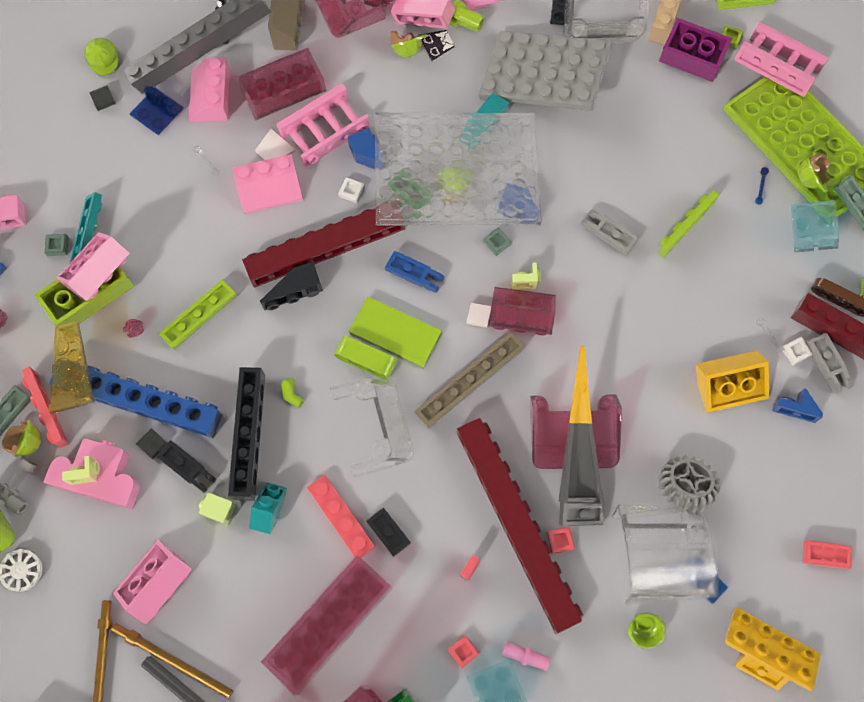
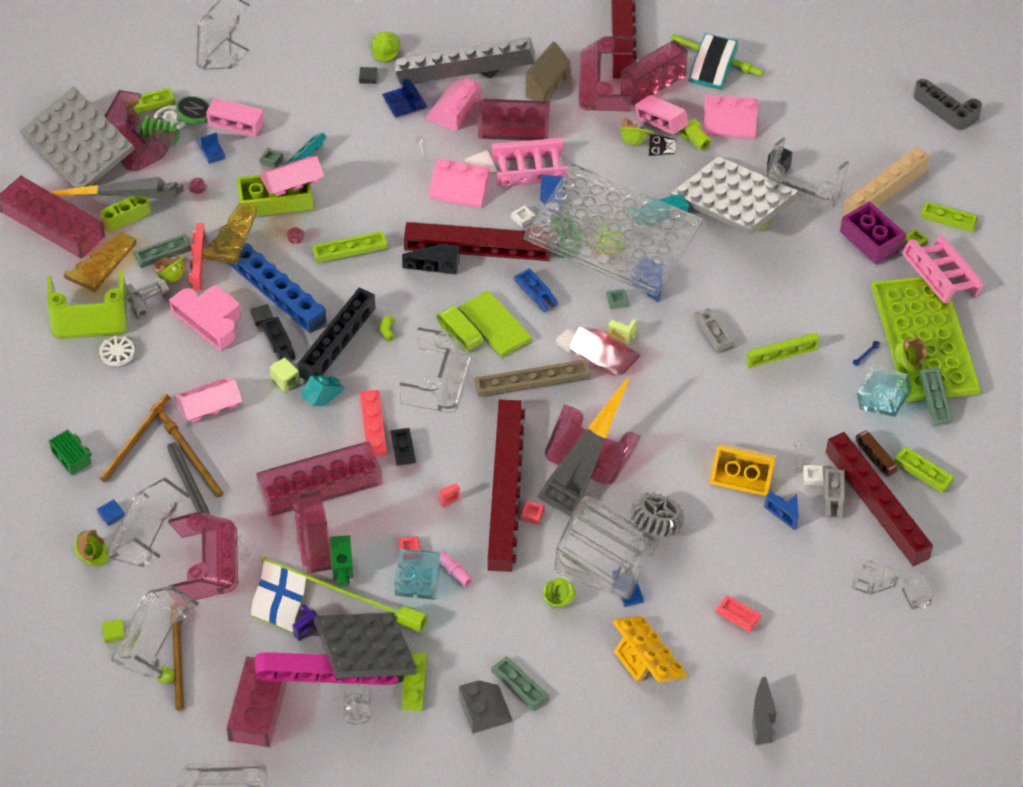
camera: 25 degrees right, 20 degrees down
(80, 475) = (200, 303): yellowish green bracket -> none

